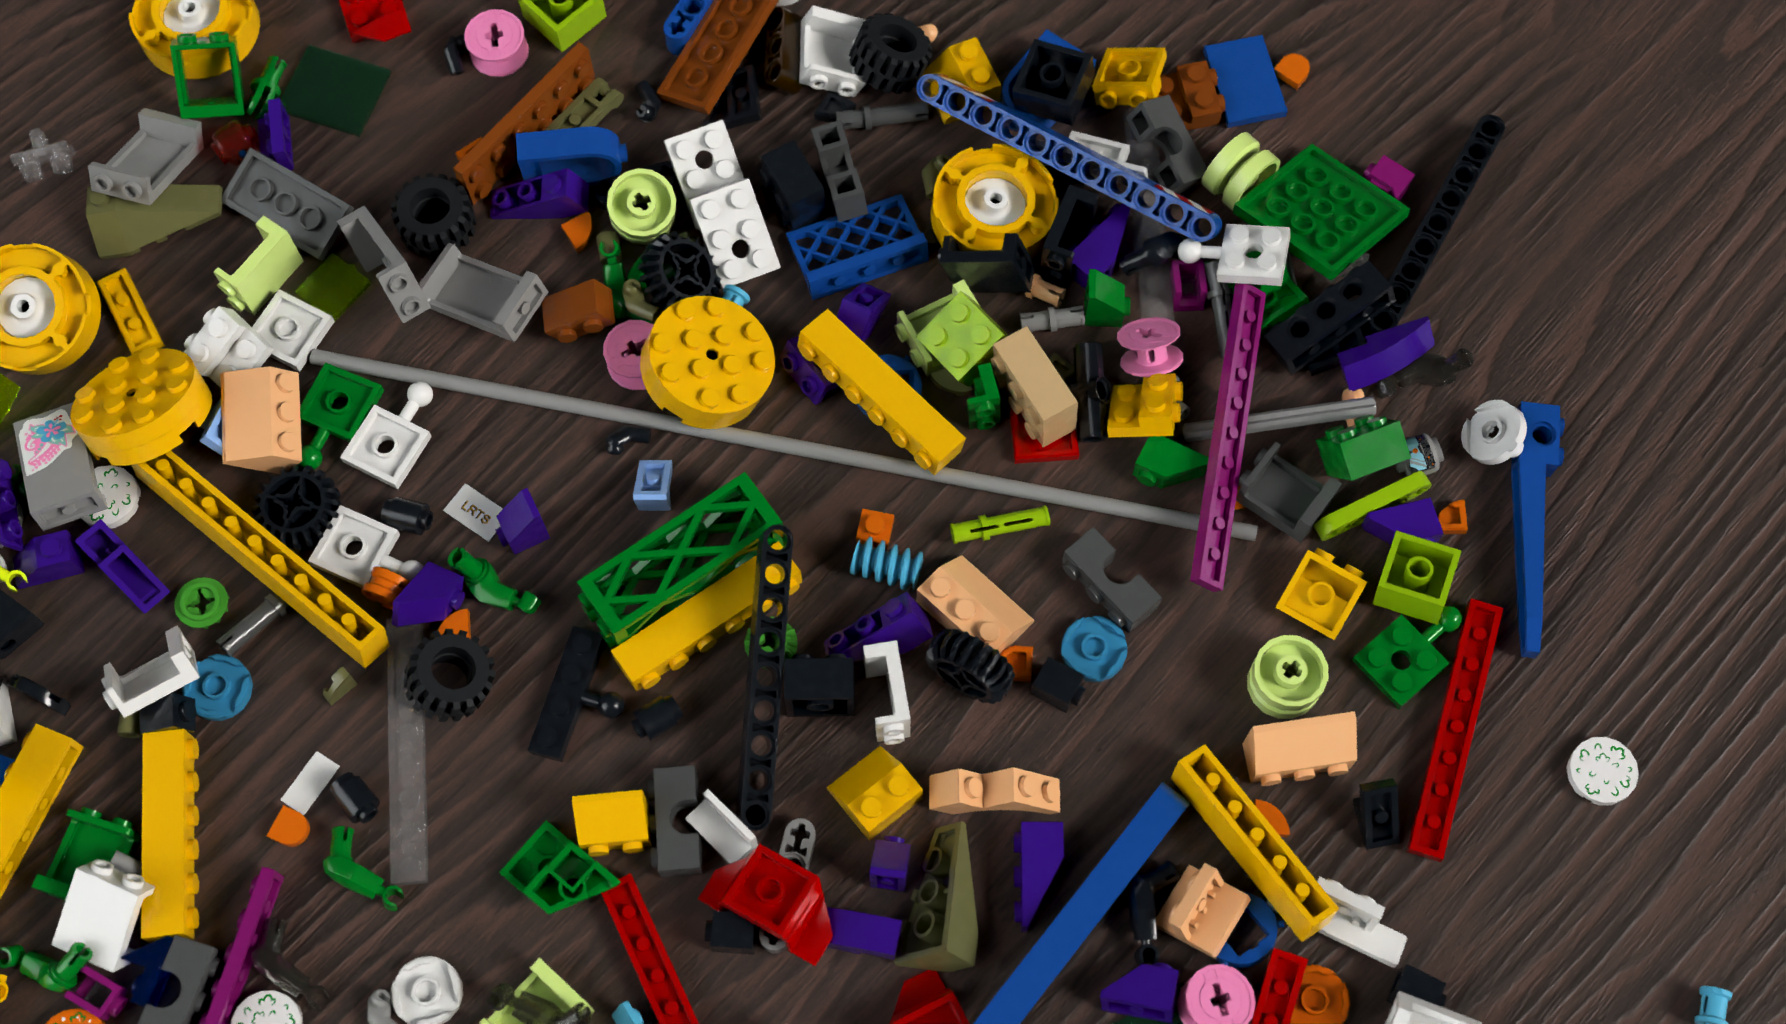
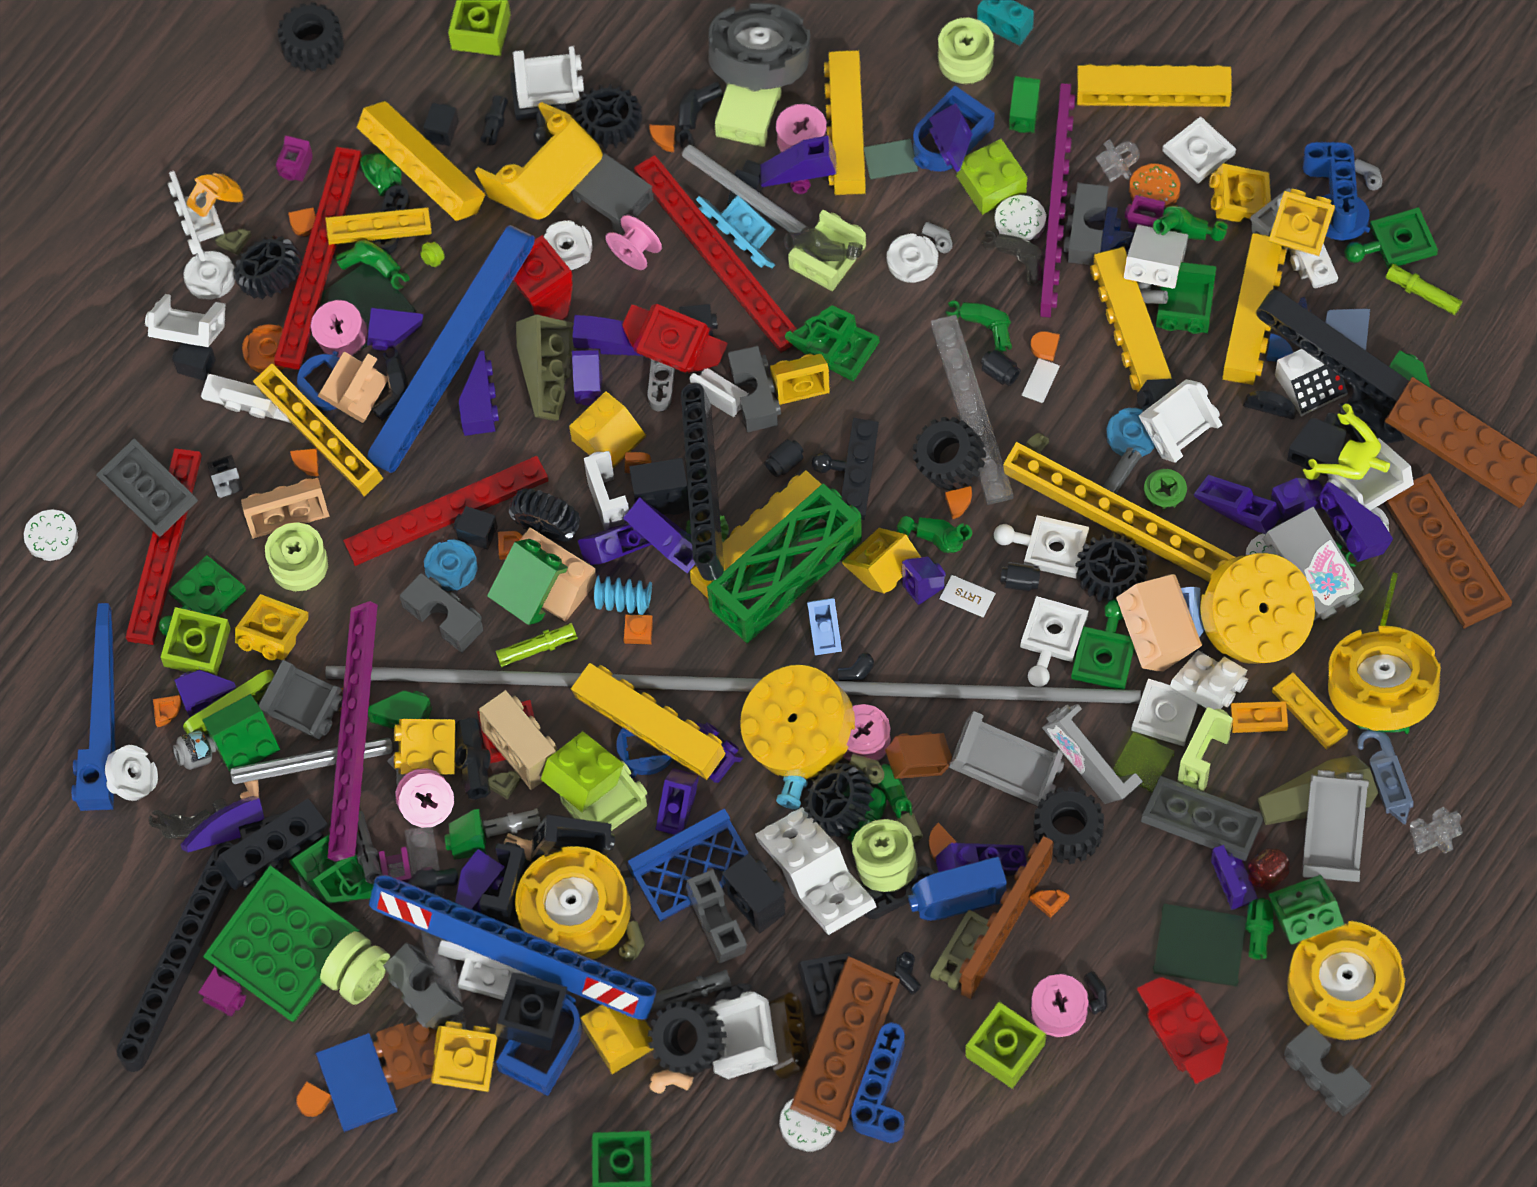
camera: 175 degrees right, 5 degrees down
(70, 219) = (1388, 776): none -> sand blue plate
(183, 307) = (1259, 717): none -> light orange plate
(384, 586) = (1017, 513): orange wheel -> none
(428, 596) = (982, 510): dark purple slope -> none
(561, 559) = (880, 559): none -> yellow slope
(822, 615) = (662, 534): none -> dark purple slope
(843, 742) = (635, 458): none -> orange tile
(985, 407) = (559, 724): green bracket -> none
(1000, 584) = (526, 580): none -> panel
(1005, 789) = (504, 438): light nougat arch -> none
(1093, 722) = (444, 510): none -> red plate
(1237, 242) = (355, 862): white plate -> none
(1480, 801) = (147, 487): none -> dark grey plate

